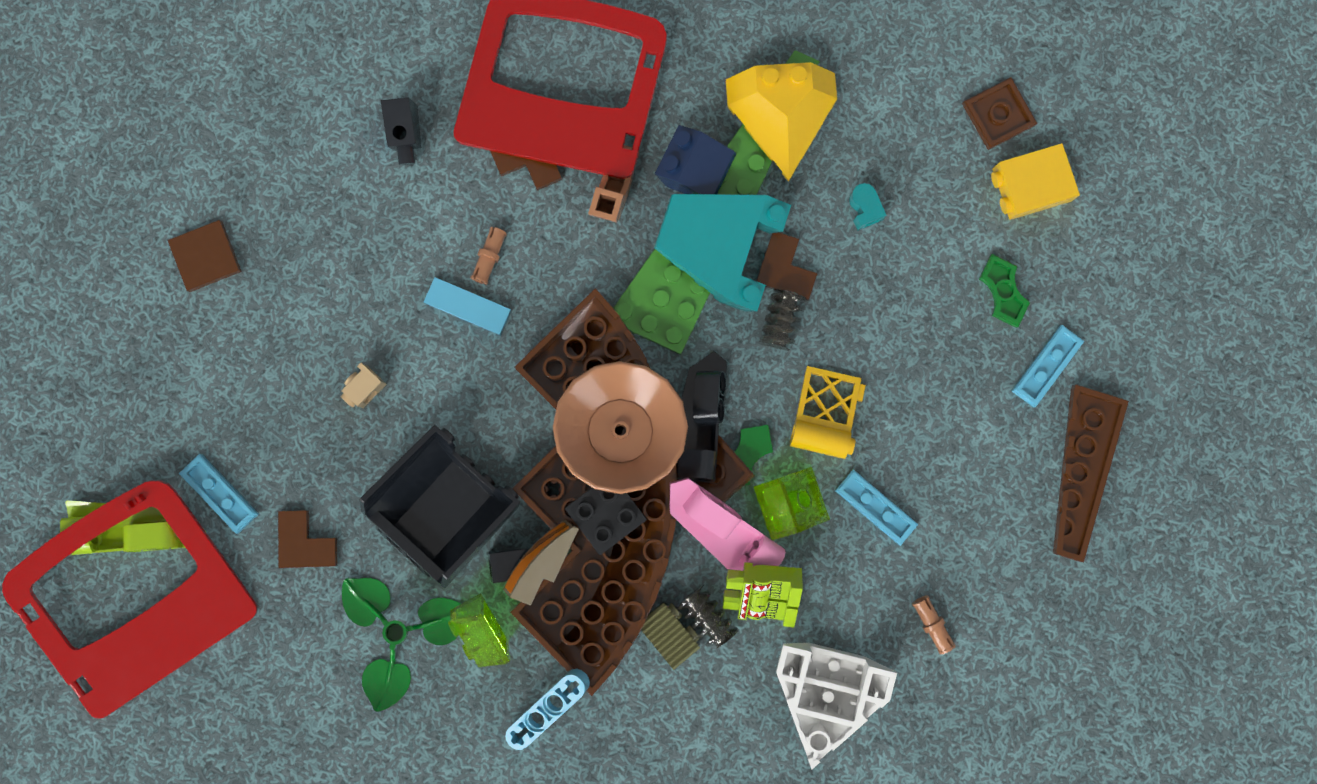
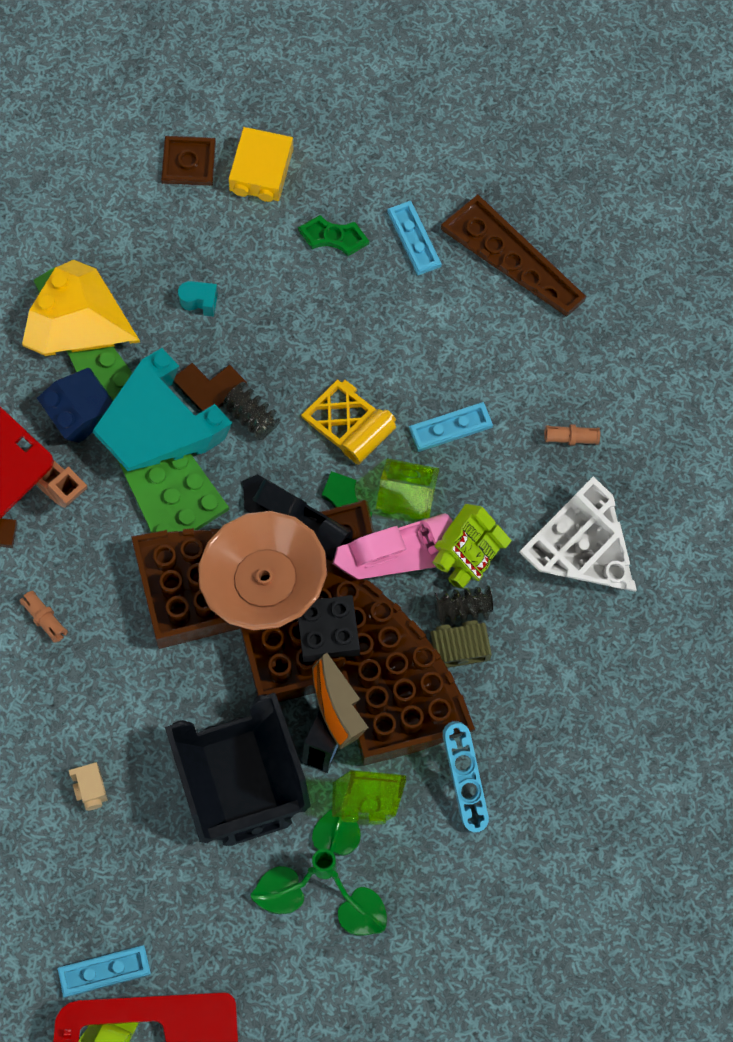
camera: 60 degrees left, 15 degrees down
(296, 548) = (195, 926): reddish brown tile -> none
(467, 306) = (75, 659): medium azure tile -> none

